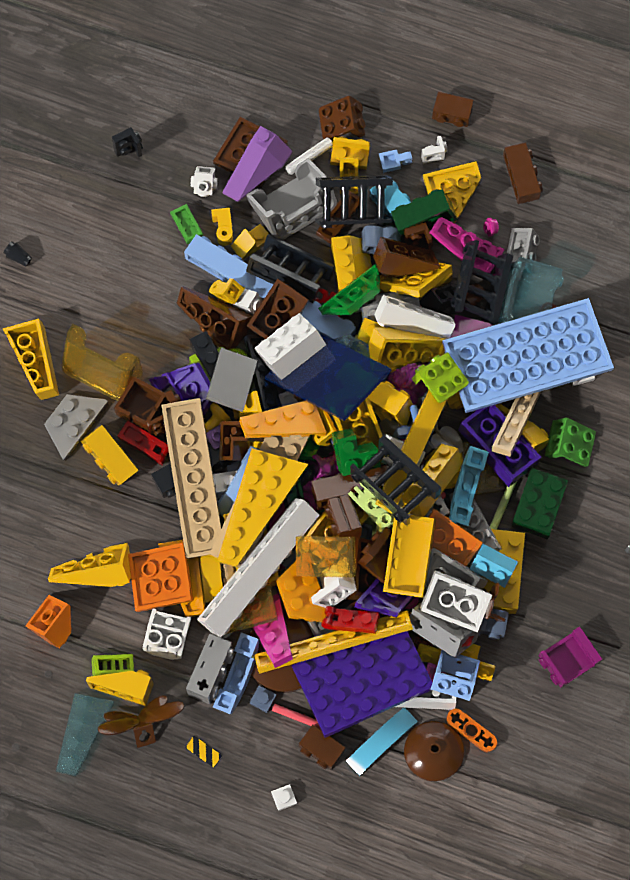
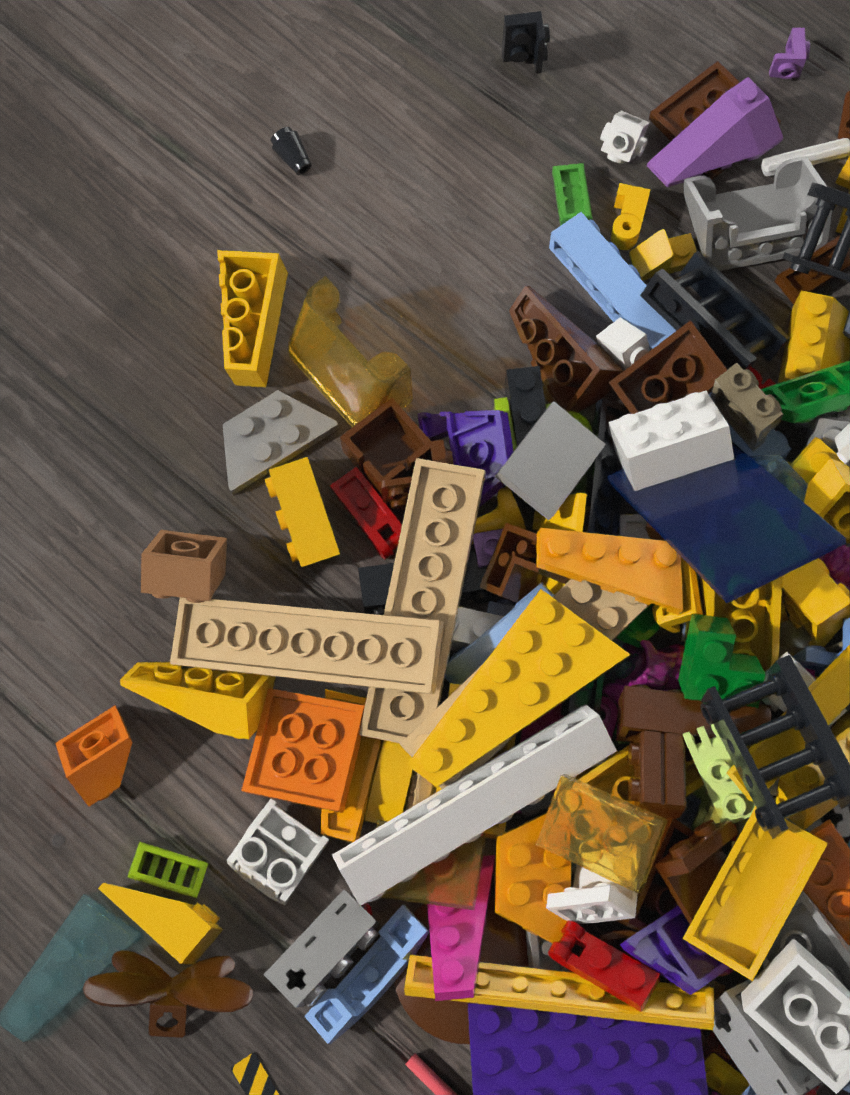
camera: 25 degrees right, 0 degrees up
(57, 507) = (183, 566): none -> medium nougat brick
(139, 522) = (309, 644): none -> tan plate
(227, 292) = (598, 317): yellow leg -> none
(263, 699) = (397, 1036): sand blue plate -> none
(283, 99) = (791, 63): none -> medium lavender bracket
(322, 314) = (746, 405): none -> dark tan plate

